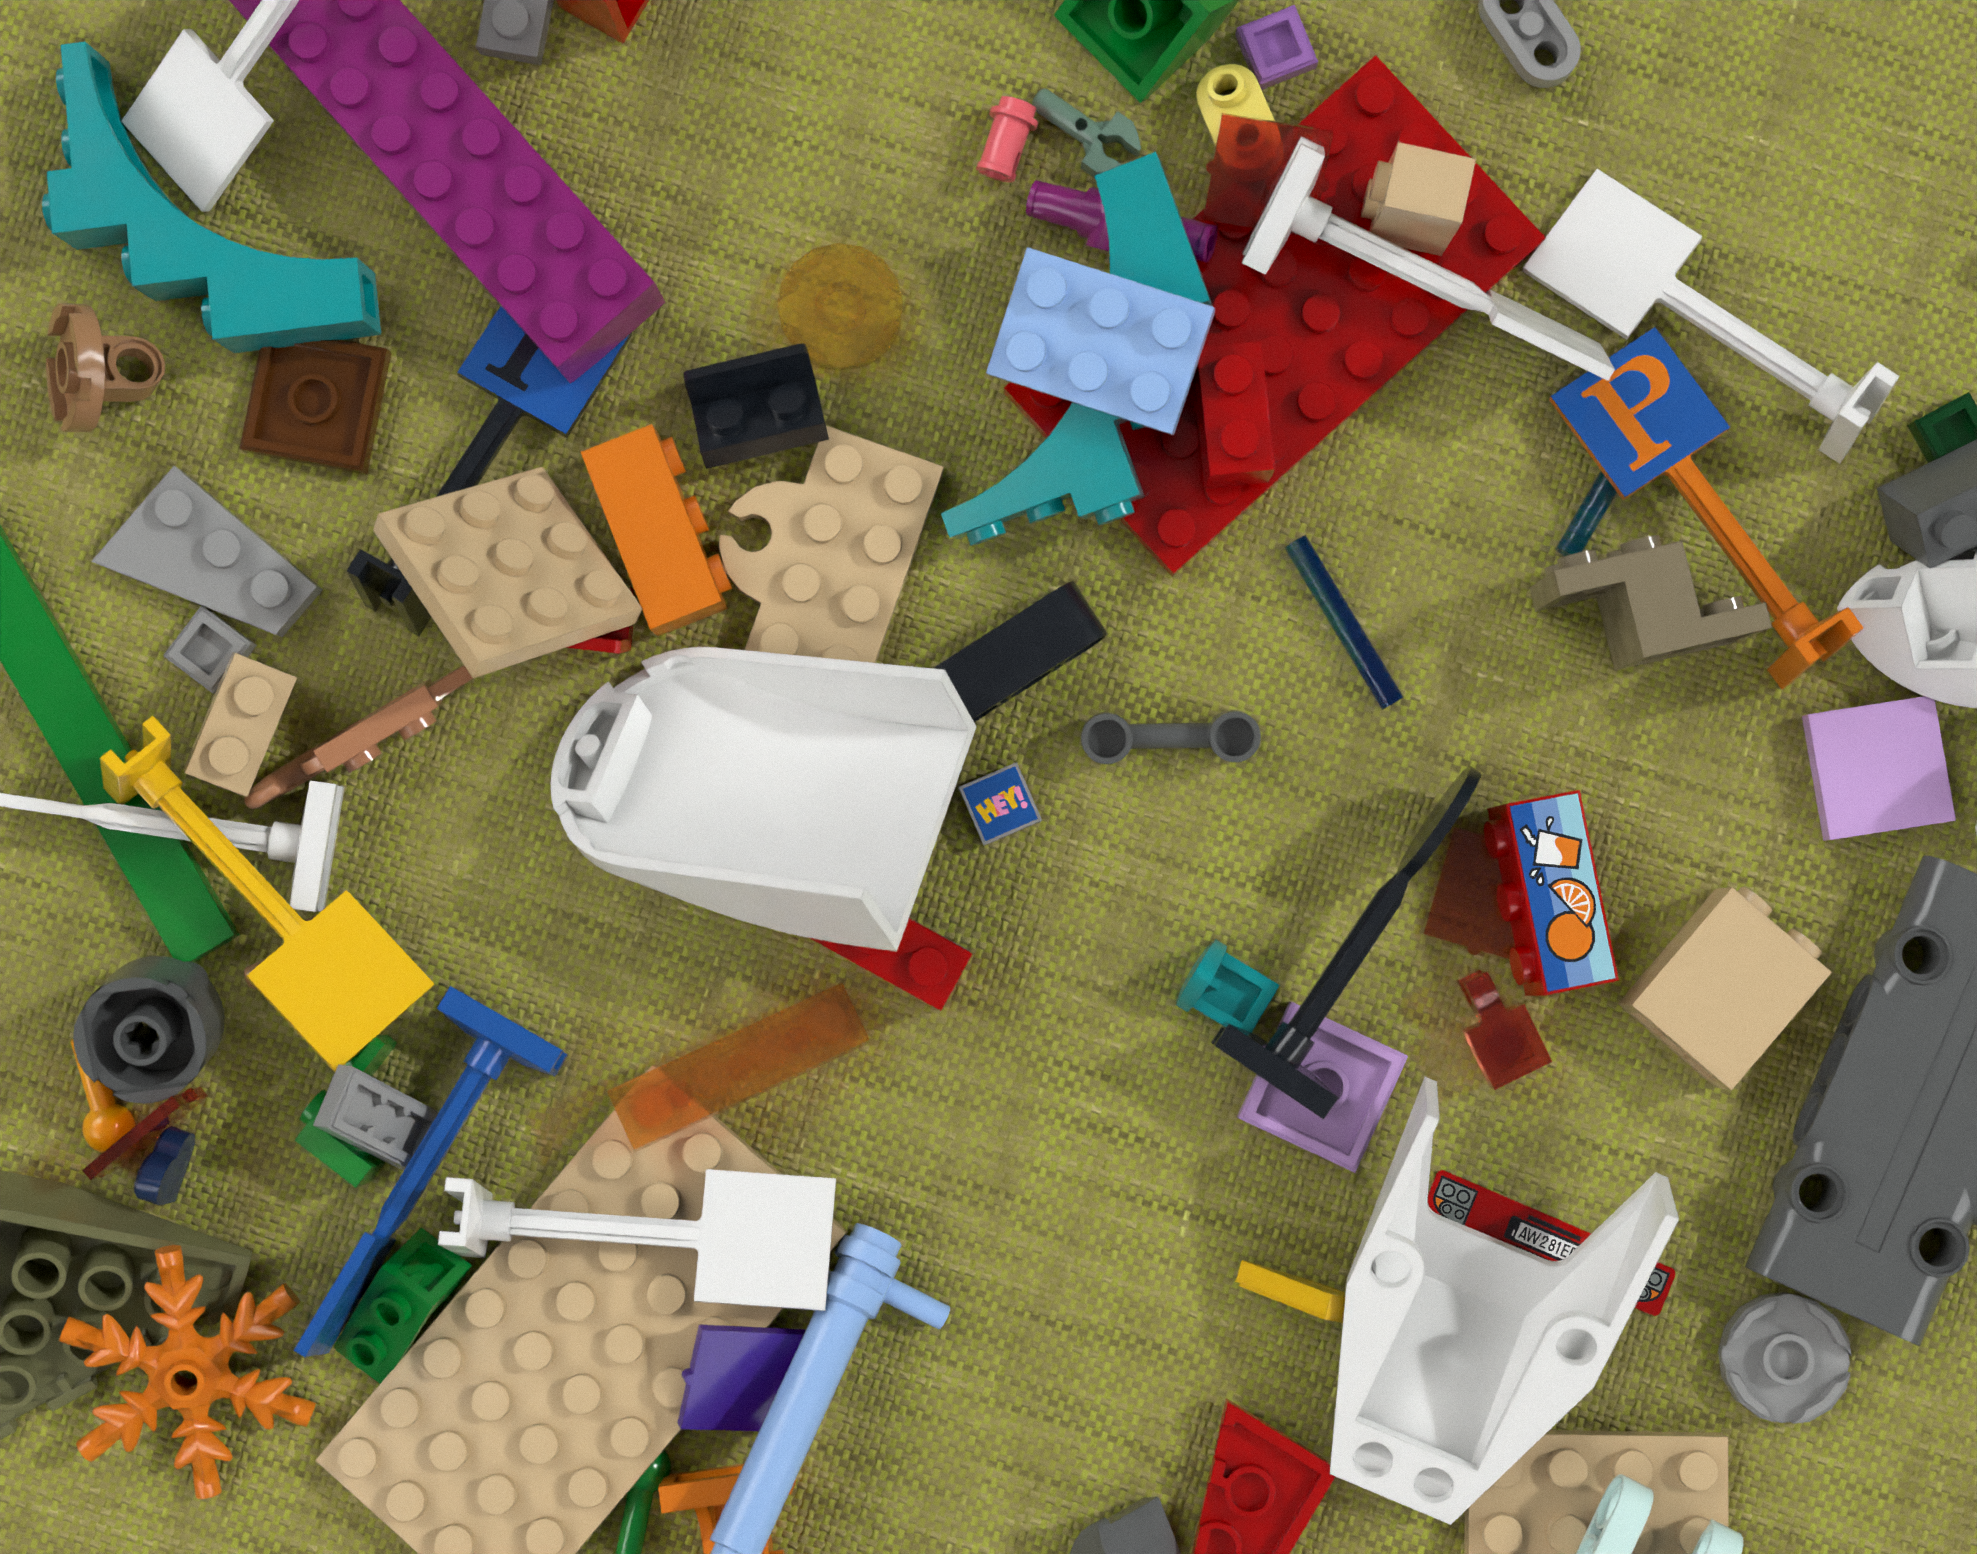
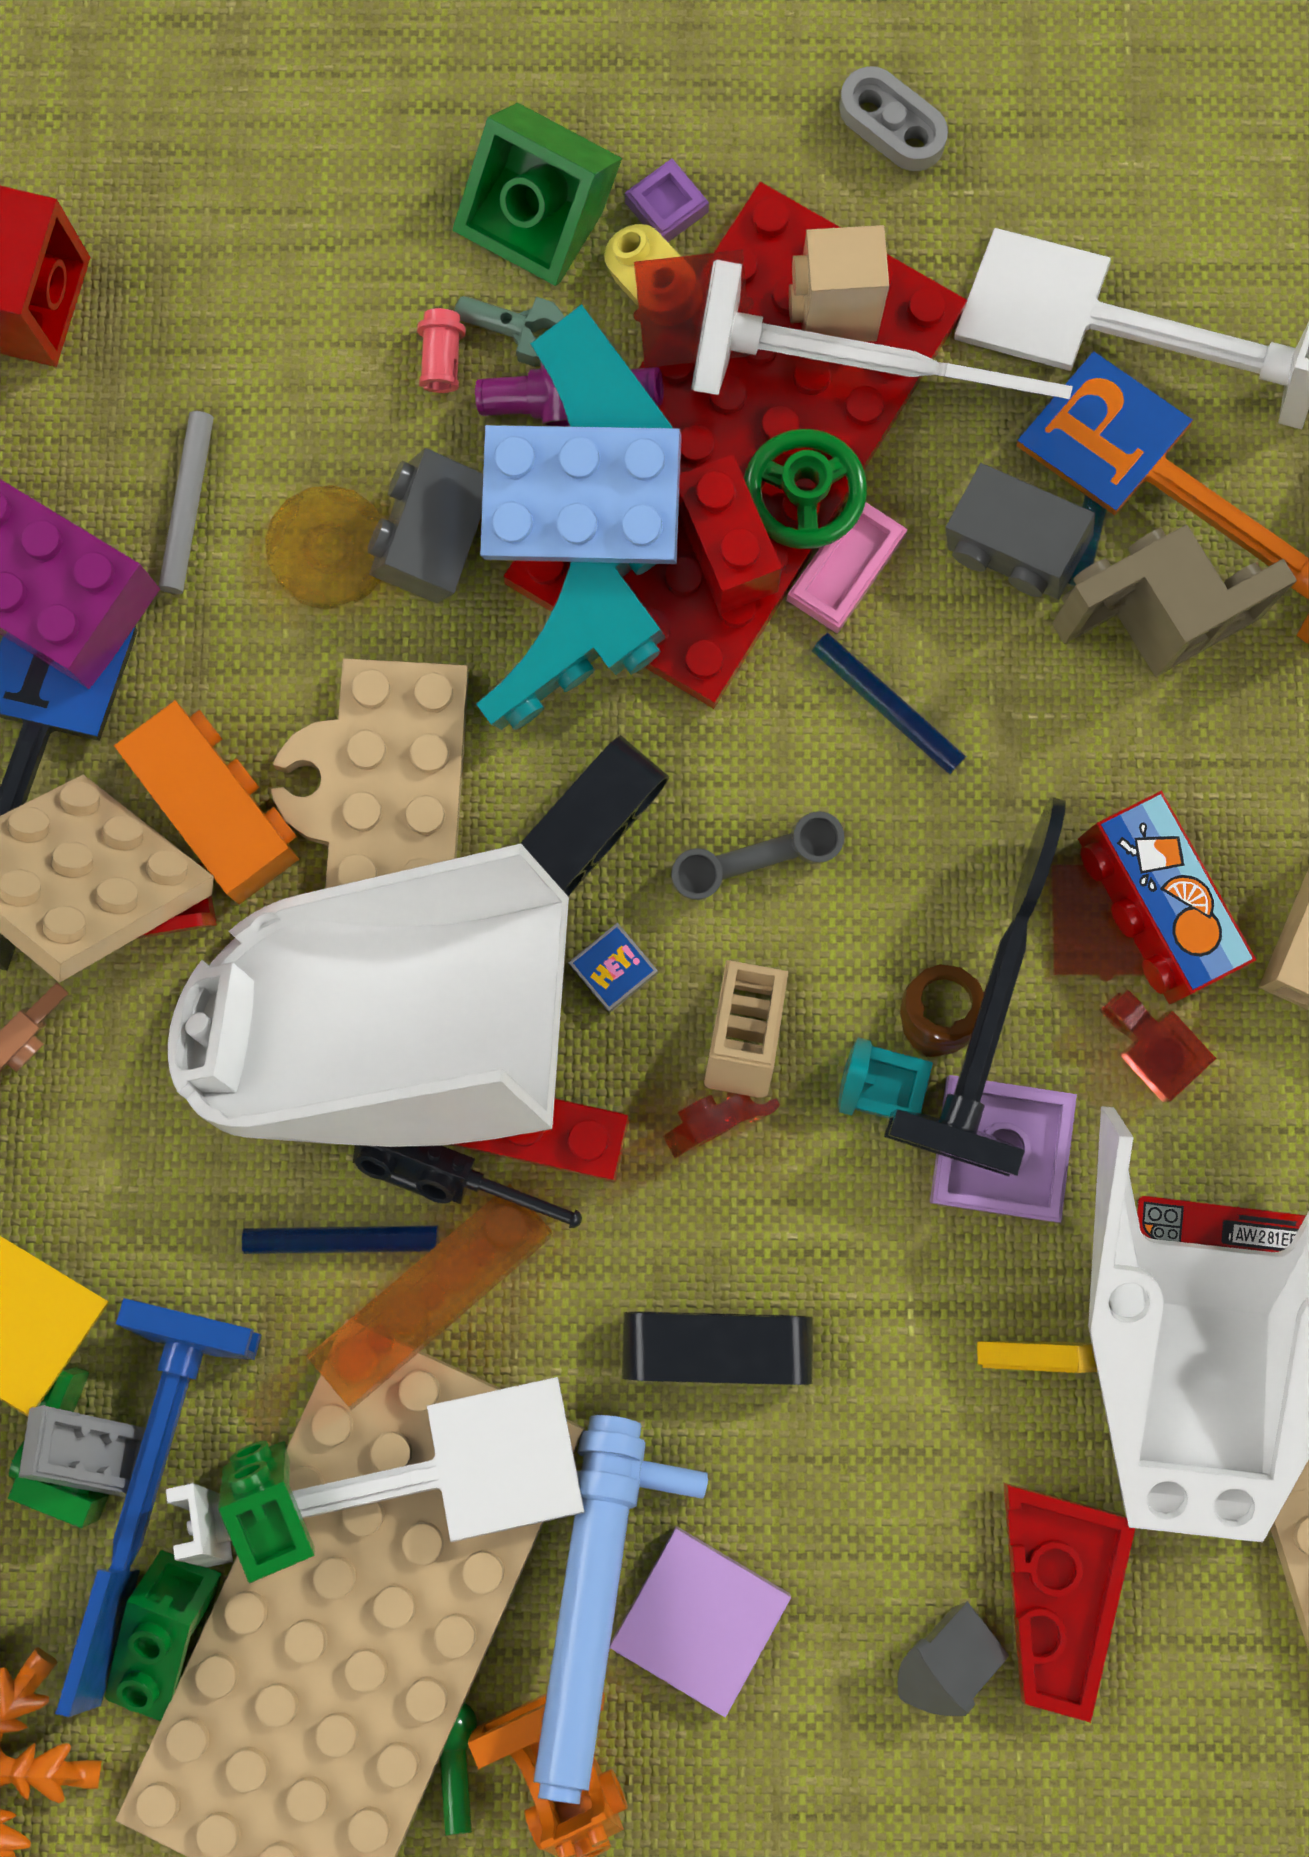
camera: 20 degrees left, 5 degrees down
(528, 1220) = (263, 1510): none -> green bracket
(667, 987) = (340, 1239): none -> clear blue bar
(714, 221) = (186, 502): none -> light grey bar
(735, 1376) = (513, 1606): dark purple piece -> none
(755, 405) = (271, 657): black bracket -> none
(783, 959) = (445, 1177): none -> black piece
(904, 1440) = (700, 1621): none -> lavender tile
(945, 318) = (429, 526): none -> dark grey brick
(994, 1194) = (717, 1348): none -> black beam
(1047, 978) = (707, 1120): none -> clear red plate
(1094, 935) = (741, 1065): none -> tan slope
(1279, 956) = (925, 1036): none -> reddish brown piece
(1344, 471) = (846, 569): none -> bright pink tile
(1347, 379) = (811, 466): none -> green piece
(1521, 492) = (1019, 532): none -> dark grey brick

